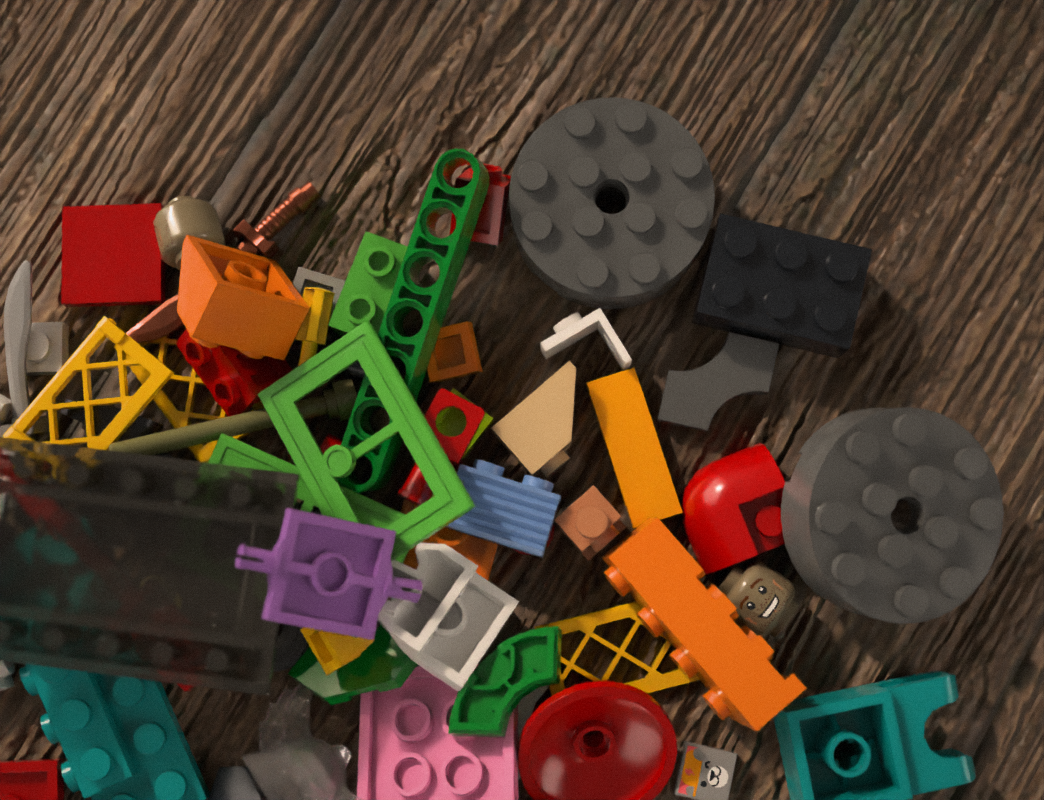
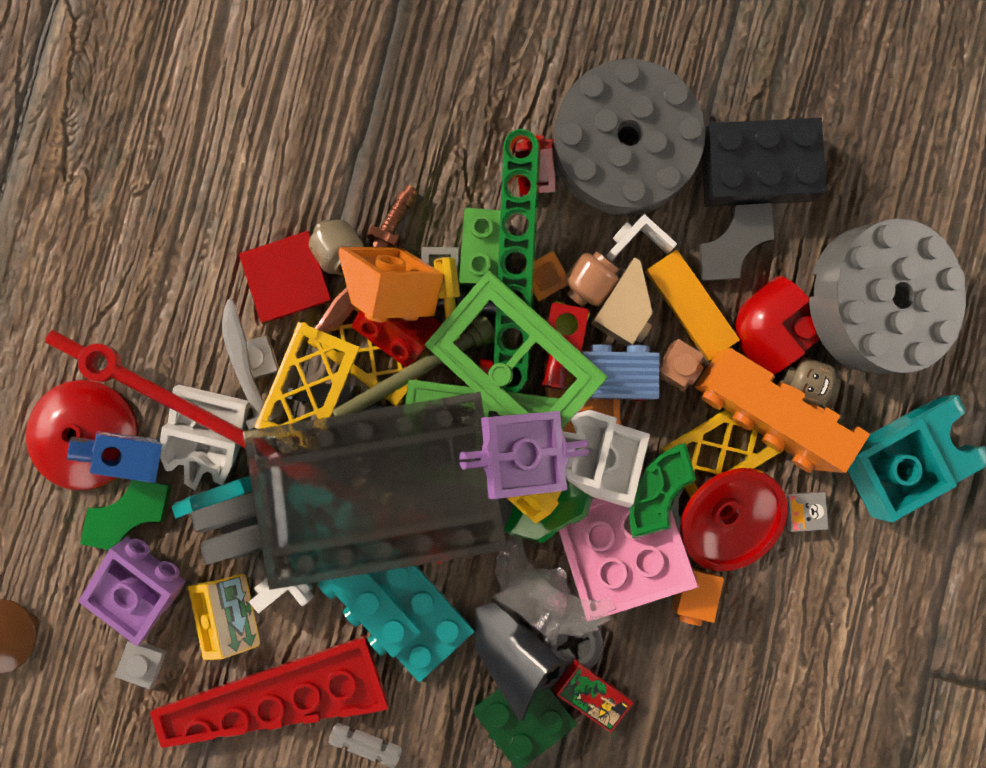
camera: 25 degrees left, 5 degrees up
(507, 373) = (591, 279): none -> nougat head

